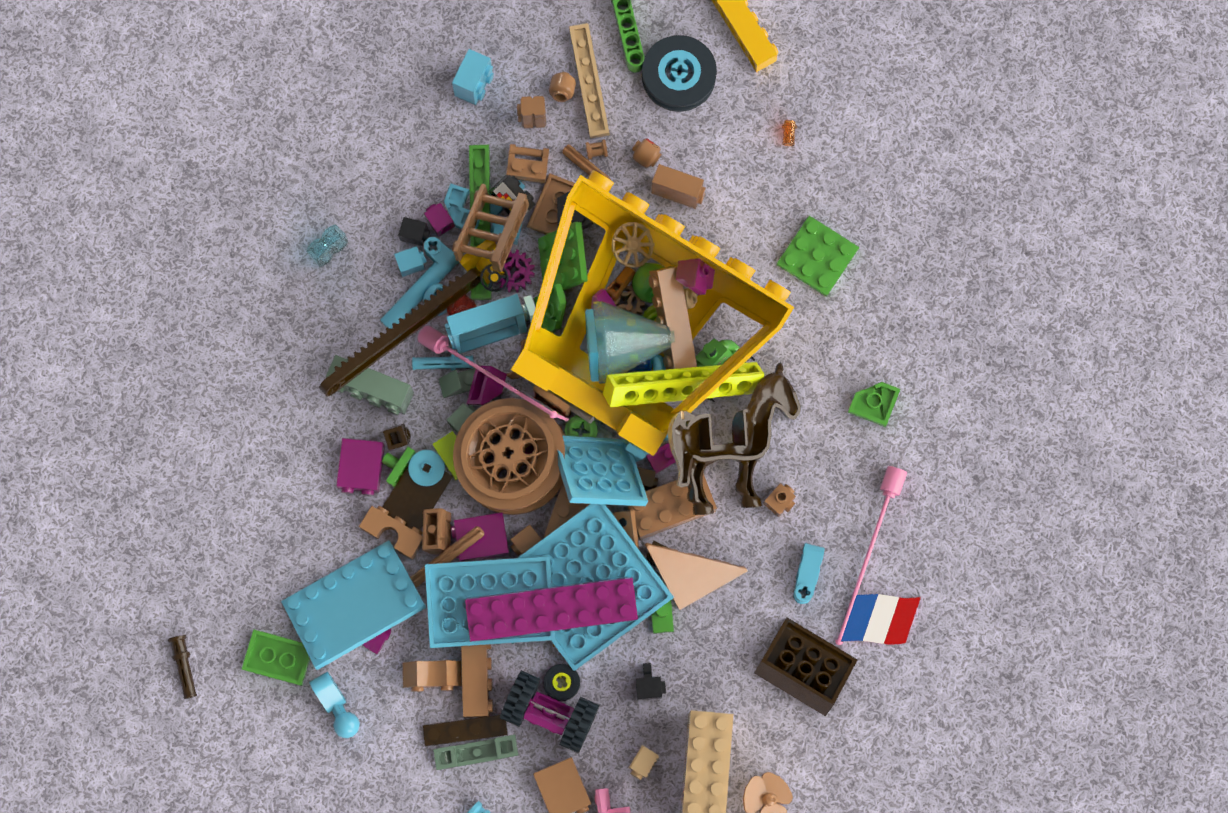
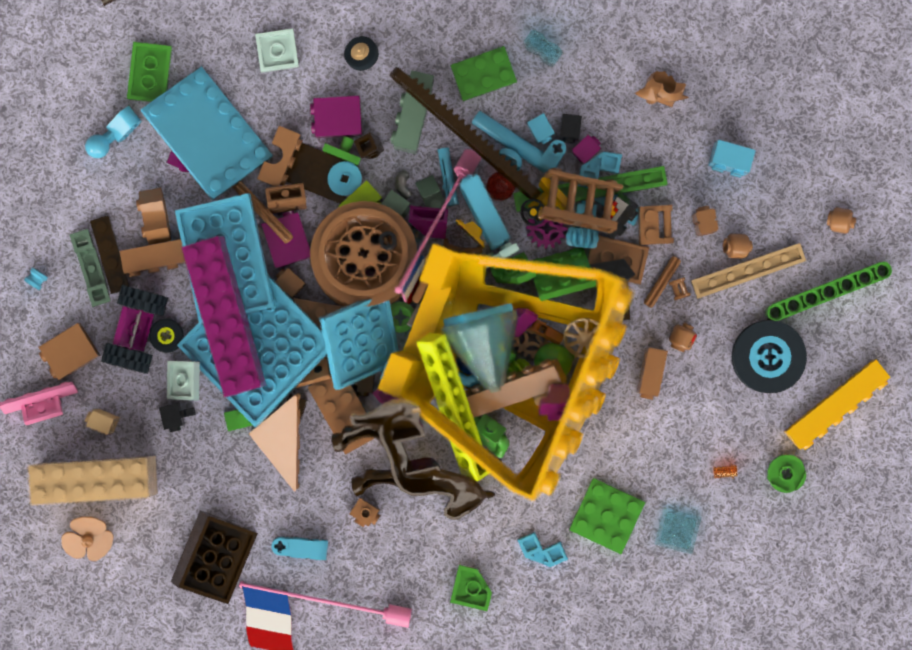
camera: 75 degrees right, 10 degrees up
(279, 519) = (277, 50): none -> light aqua plate
(298, 431) = (361, 53): none -> black wheel
(342, 311) = (483, 73): none -> bright green plate
(391, 134) = (662, 89): none -> medium nougat hair
(441, 411) = (400, 184): none -> flat silver arm
(499, 430) = (382, 242): none -> black bush
(504, 343) = (472, 231): none -> yellow piece
(528, 235) = (582, 237): none -> medium azure gear
(612, 669) = (183, 380): none -> light aqua plate
(799, 85) = (775, 475): none -> bright green plate
(842, 188) = (677, 530): none -> clear light blue plate
(851, 320) = (548, 556): none -> medium azure tile

